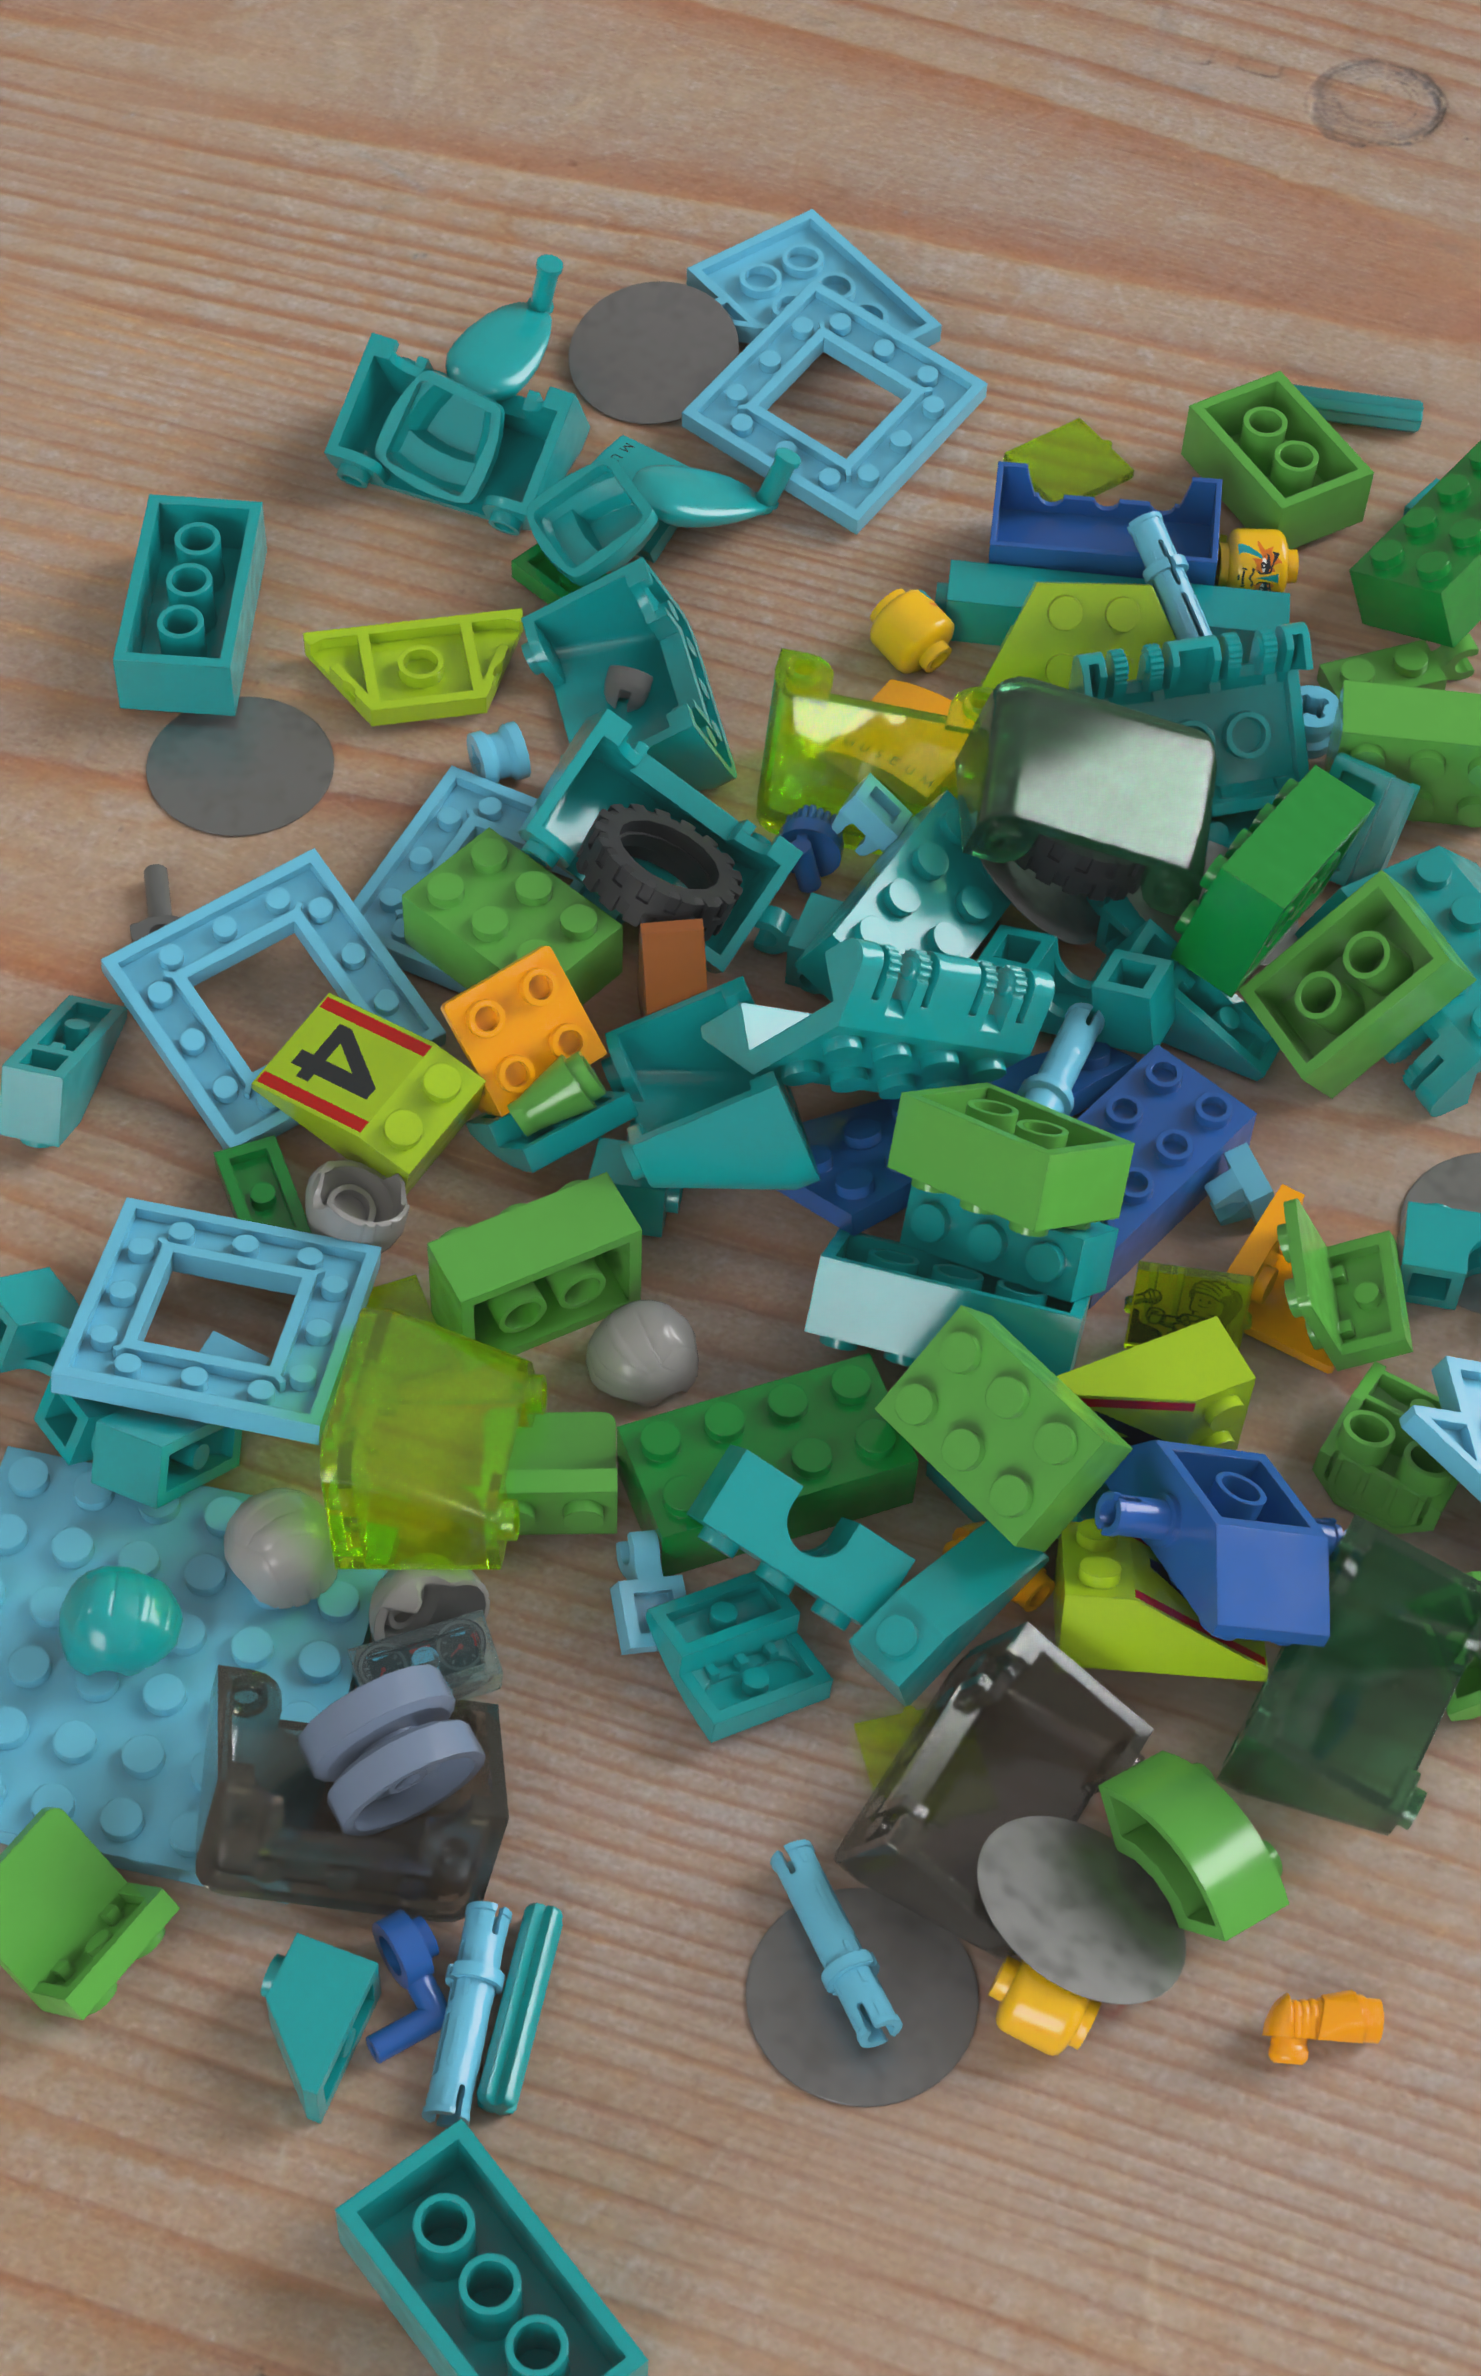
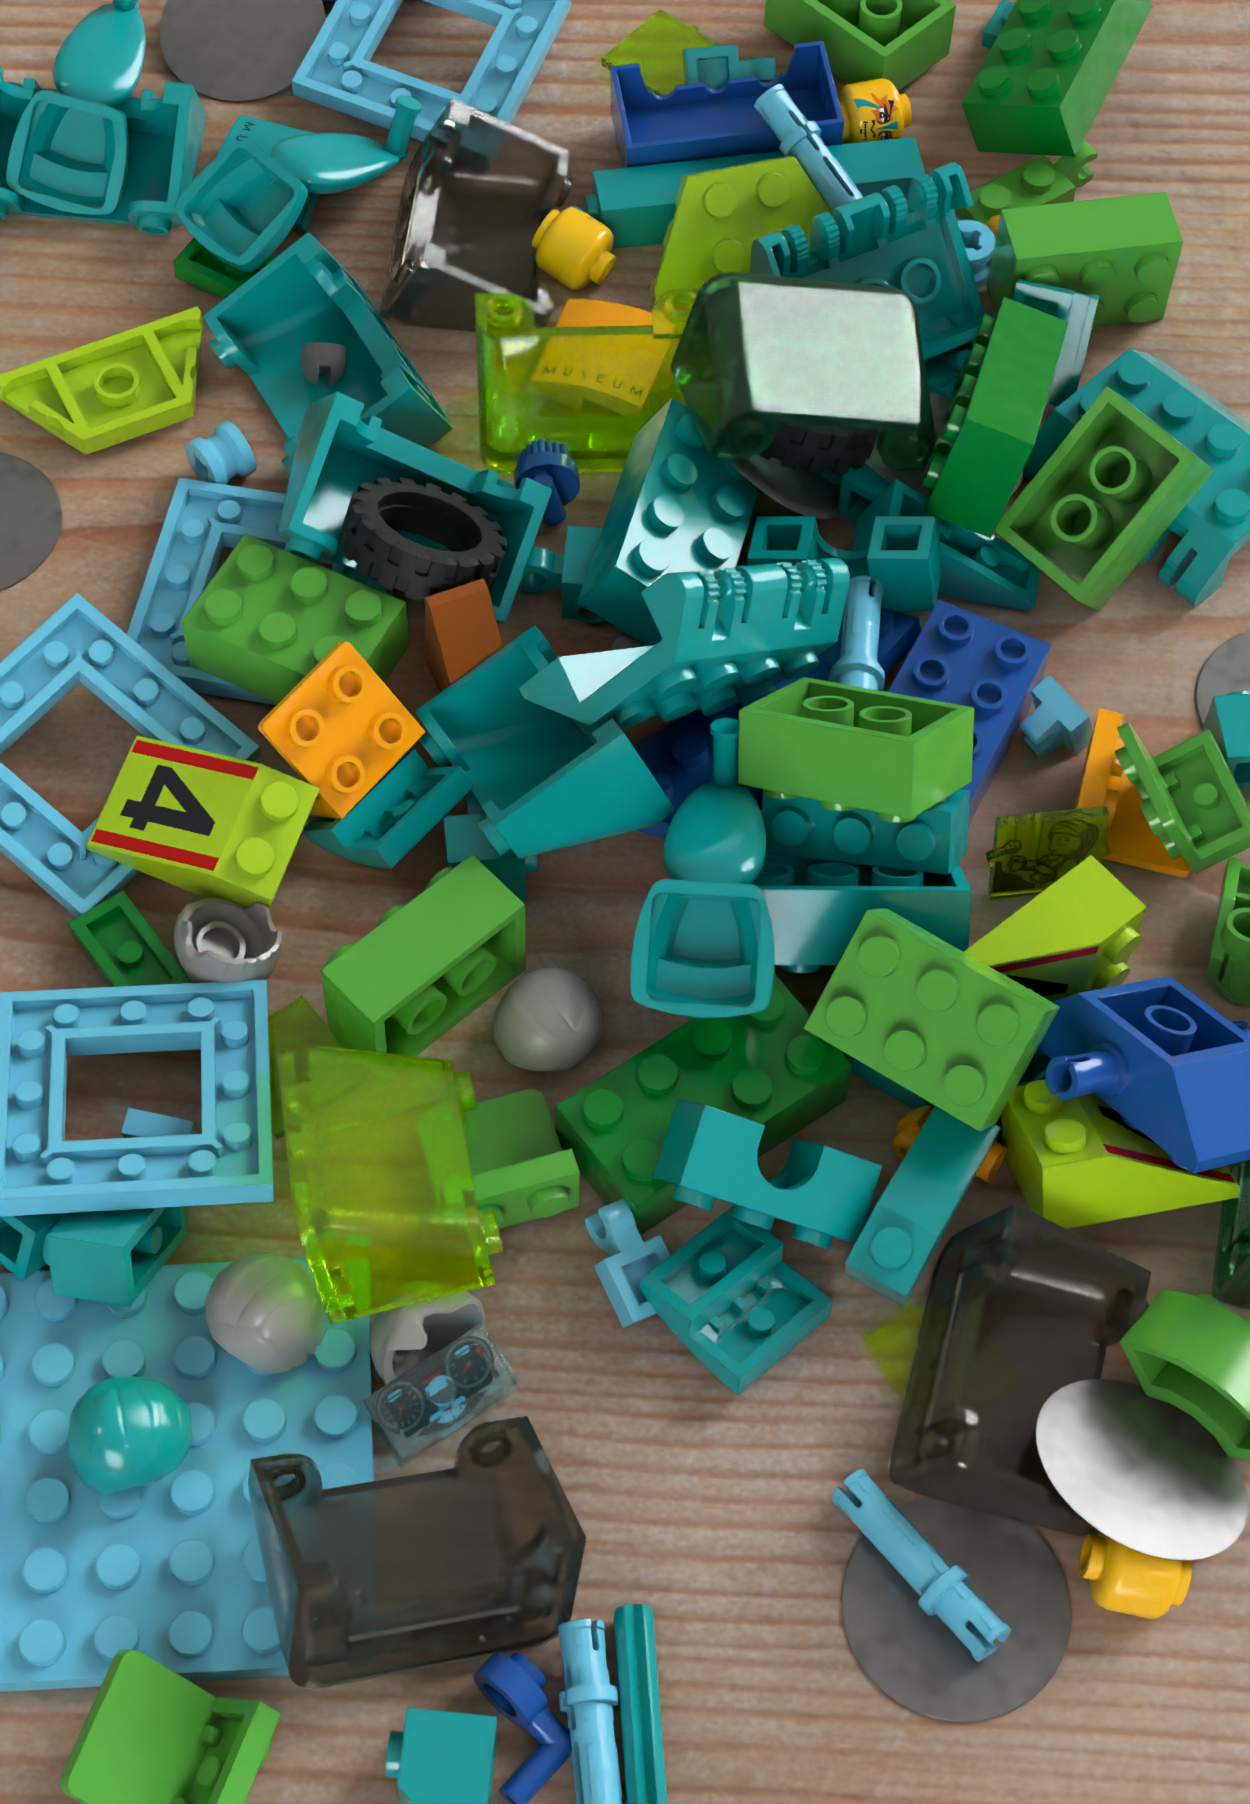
camera: 15 degrees left, 5 degrees up
(391, 1750) = (437, 1488): sand blue wheel -> none
(557, 1094) = (393, 784): bright green cone -> none
(804, 1292) = (707, 931): none -> teal piece
(818, 582) = (471, 220): none -> clear smoke windscreen
(874, 813) = (603, 434): medium azure tile -> none
(1119, 481) = (719, 63): none -> teal plate

